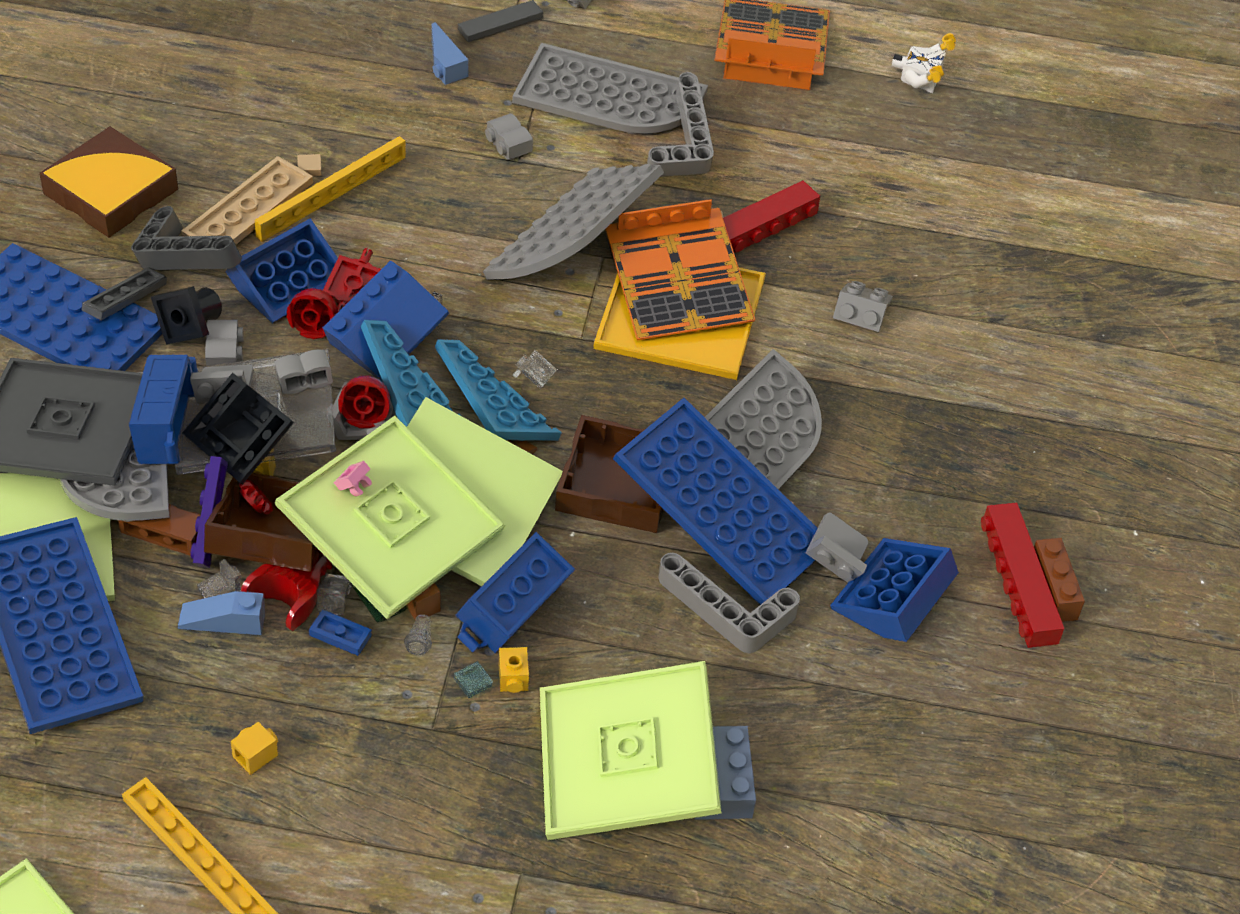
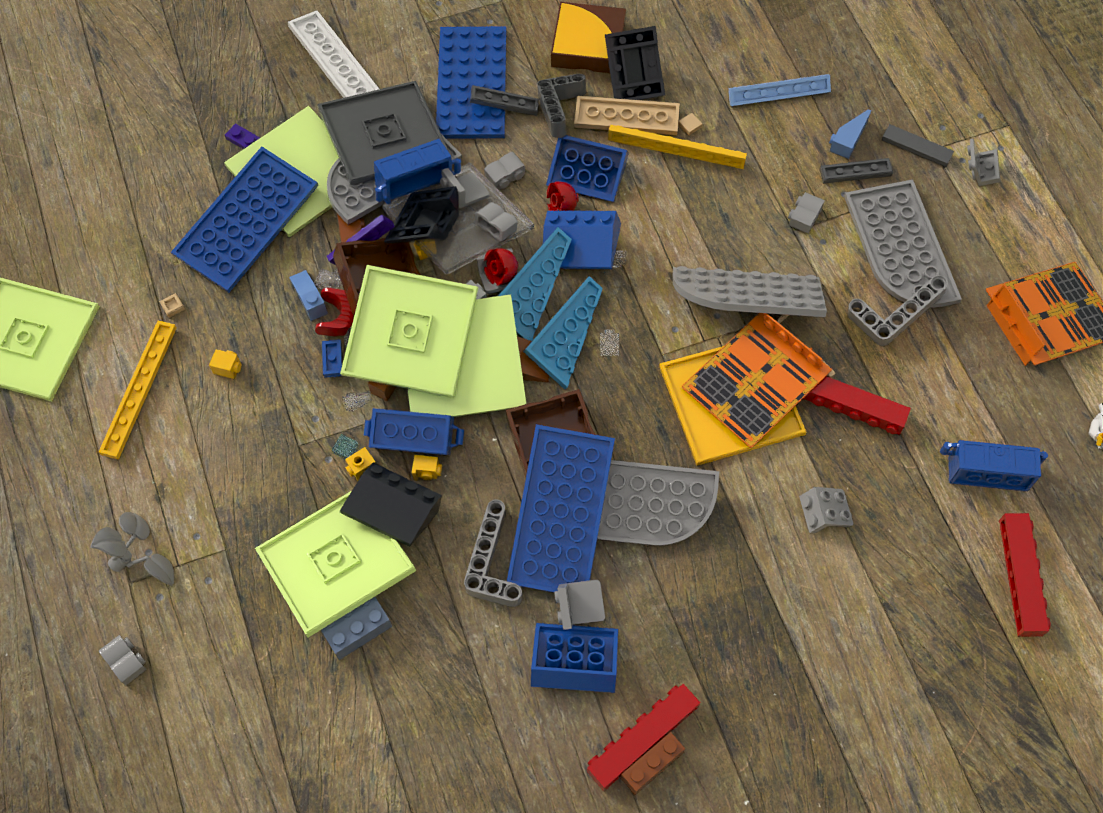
camera: 65 degrees right, 15 degrees up
(106, 773) = (172, 305): none -> tan tile
(185, 313) = (505, 137): black plant -> none
(196, 158) = (635, 64): none -> black slope
(256, 497) = (387, 252): red gear -> none
(336, 76) = (779, 90): none -> light blue plate
(349, 277) = (605, 200): red plate -> none
(352, 476) = (410, 292): bright pink tile -> none
(489, 78) = (856, 170): none -> dark grey tile
(566, 608) = (426, 467): none -> yellow brick
(596, 655) = (391, 504): none -> black slope
(906, 160) = (993, 465): none -> blue container
(1028, 206) = (1024, 575): none -> red brick

